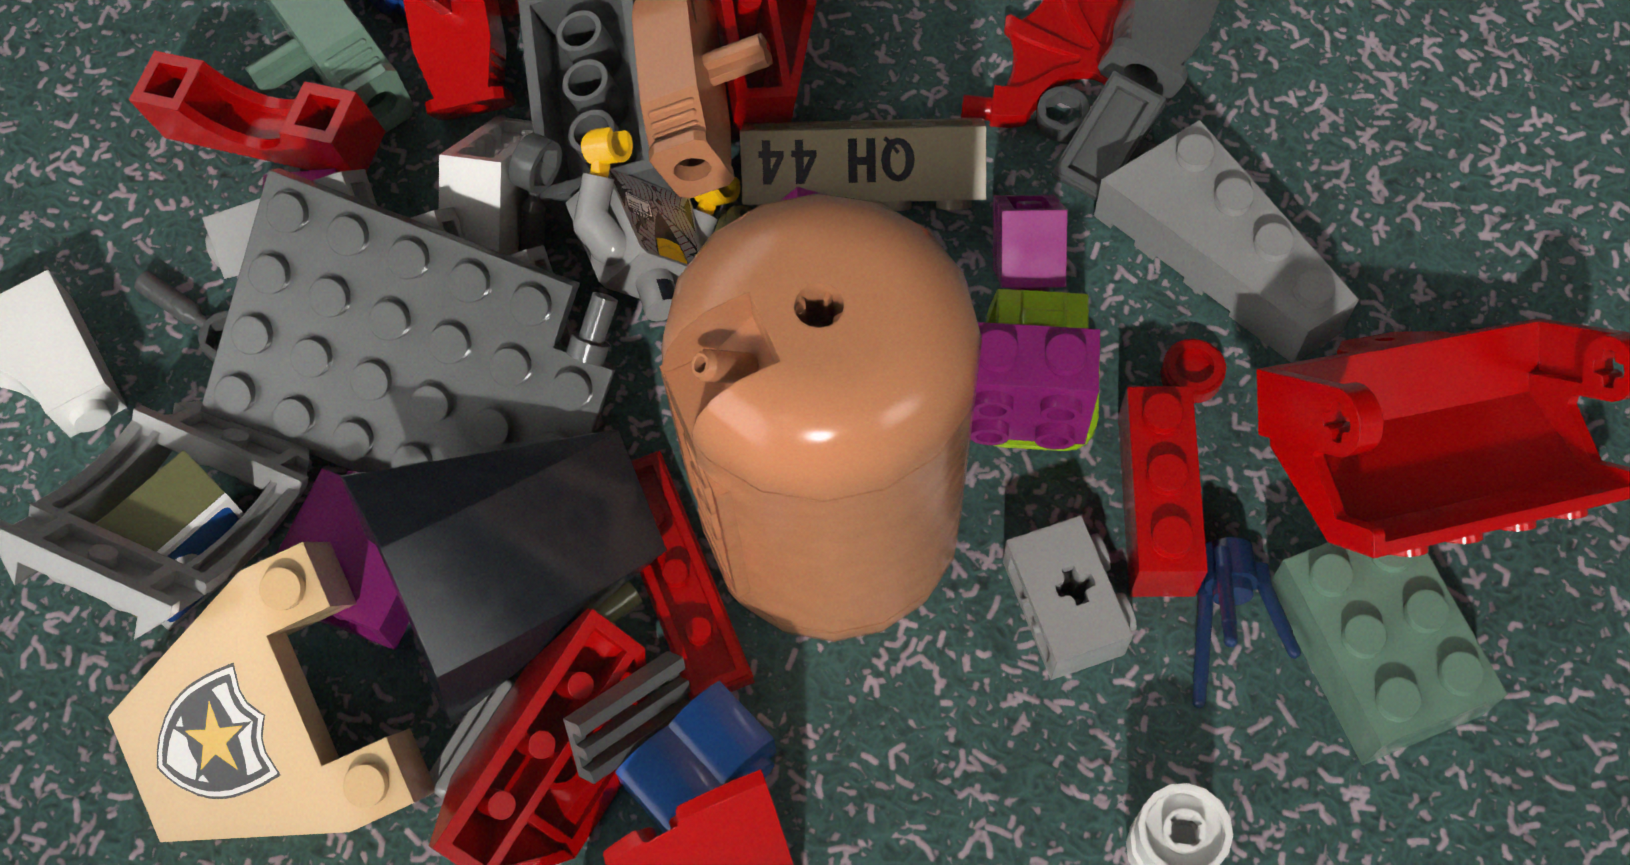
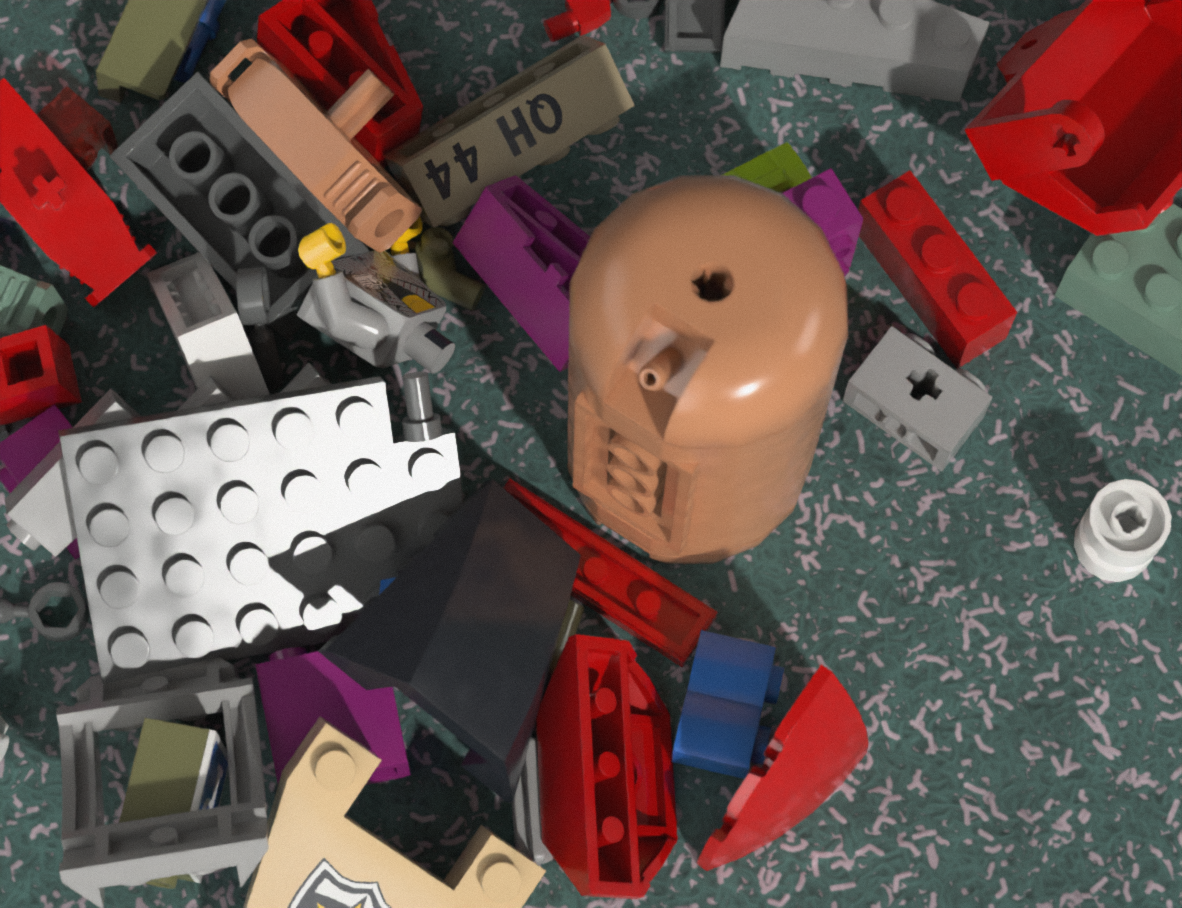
camera: 40 degrees left, 5 degrees up
(631, 724) = (654, 701): dark grey tile -> none
(1029, 241) = (701, 122): magenta brick -> none
(1196, 365) = (887, 153): red tile -> none
(1230, 583) = (1034, 313): dark blue plant -> none

